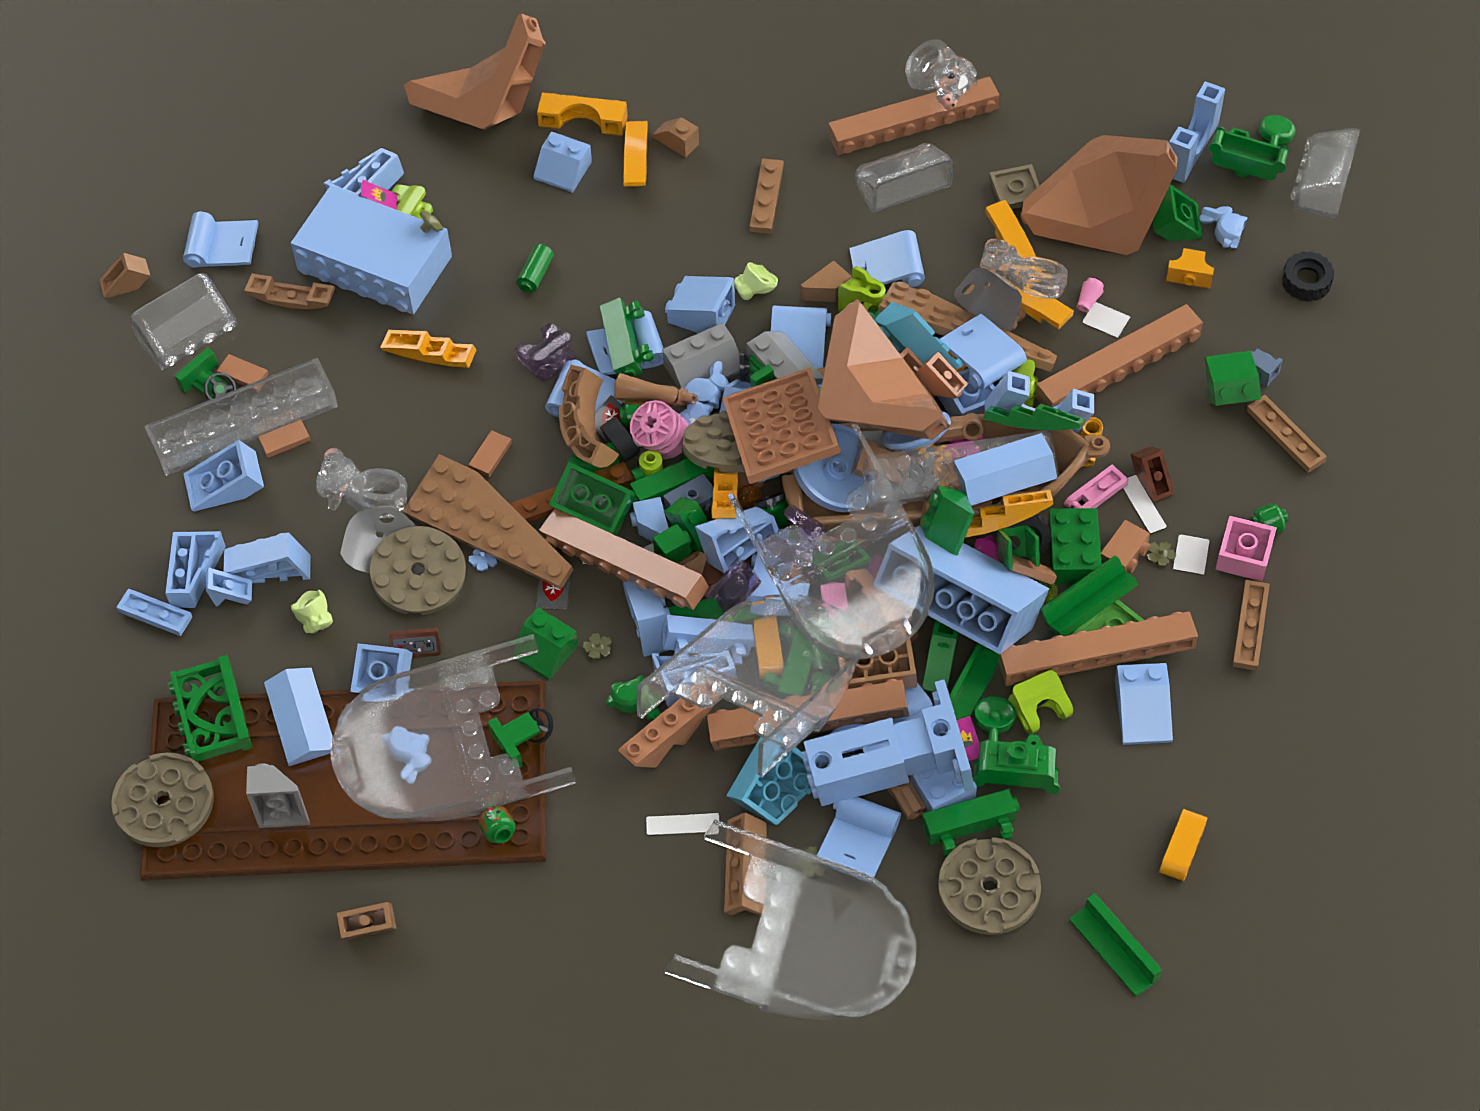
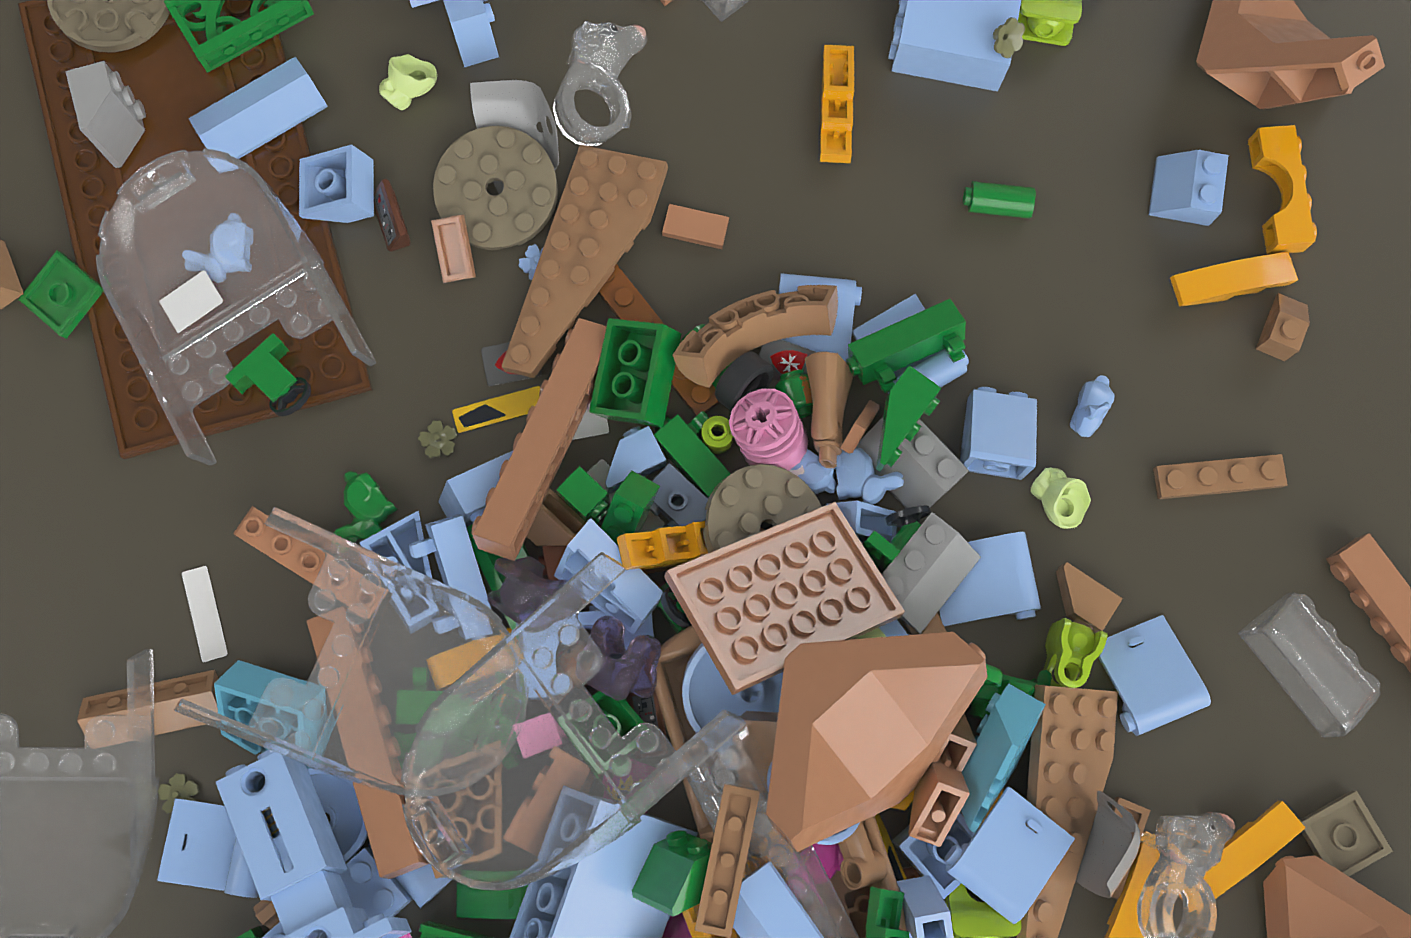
camera: 70 degrees right, 20 degrees up
(401, 877) = (61, 294): none -> green tile
(443, 775) = (191, 301): none -> white sticker
(456, 604) = (453, 248): none -> nougat tile
(497, 824) = (134, 388): green head -> none
(549, 356) = (866, 259): clear purple piece -> none
(554, 642) = (421, 372): green slope -> none
(586, 605) = (495, 409): none -> yellow sticker
(673, 344) = (904, 406): none -> green slope
(673, 376) = (860, 427): none -> nougat tile
(699, 249) = (1092, 406): none -> light blue animal
(946, 477) = (727, 860): none -> medium nougat plate

